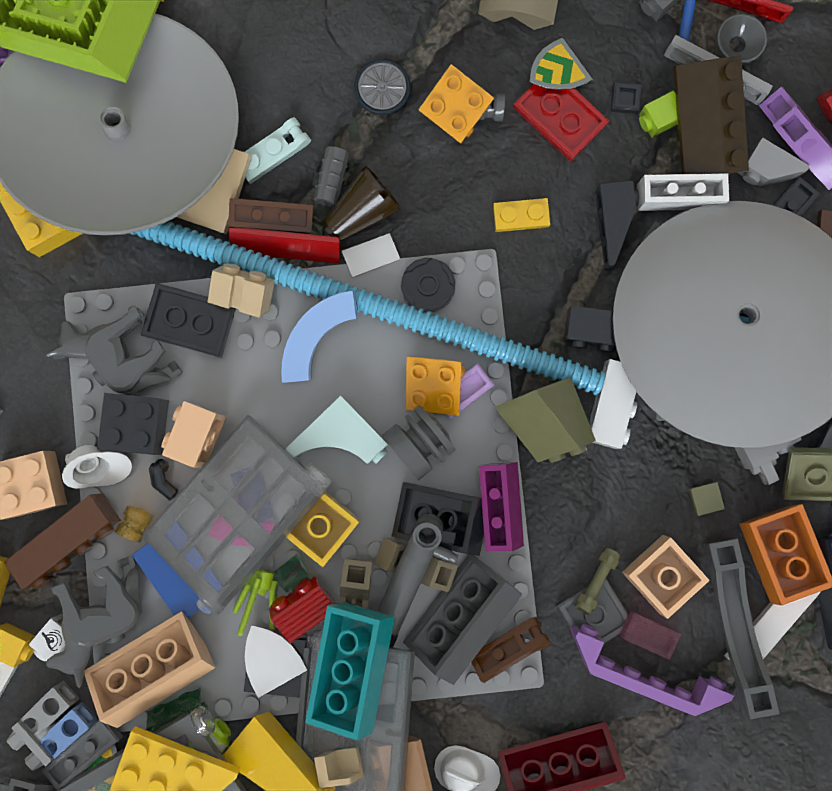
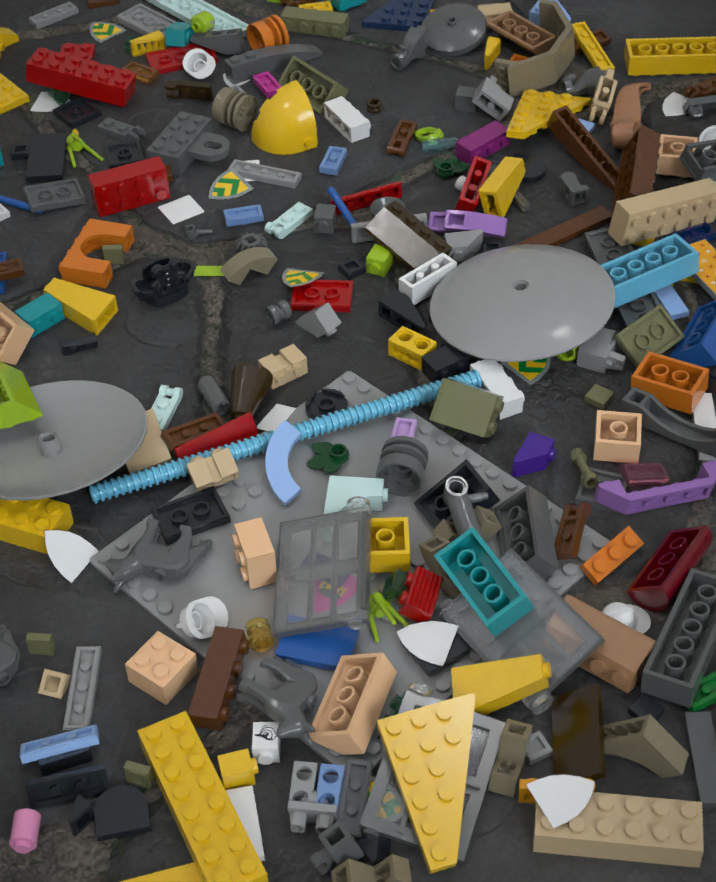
camera: 40 degrees left, 40 degrees down
(45, 275) = (68, 552): none -> white sticker
(132, 424) = (207, 576): black brick -> none
(158, 479) = (252, 604): black arm -> none
(338, 767) = (536, 643): tan panel -> none
(367, 356) = (328, 457): none -> dark green plate
(382, 87) = (202, 345): flat silver wheel -> none
(430, 193) = (286, 366): none -> tan brick
(434, 385) = (374, 435): light orange hinge -> none
(456, 104) = (257, 318): light orange hinge -> none
(501, 506) = (486, 462): magenta brick -> none
(520, 155) = (320, 321): none -> light grey slope
(521, 215) = (347, 347): yellow plate -> none
(526, 699) = (611, 555): none -> orange plate
(568, 522) = (534, 455): none -> dark purple slope
(573, 277) = (410, 346): none -> yellow brick

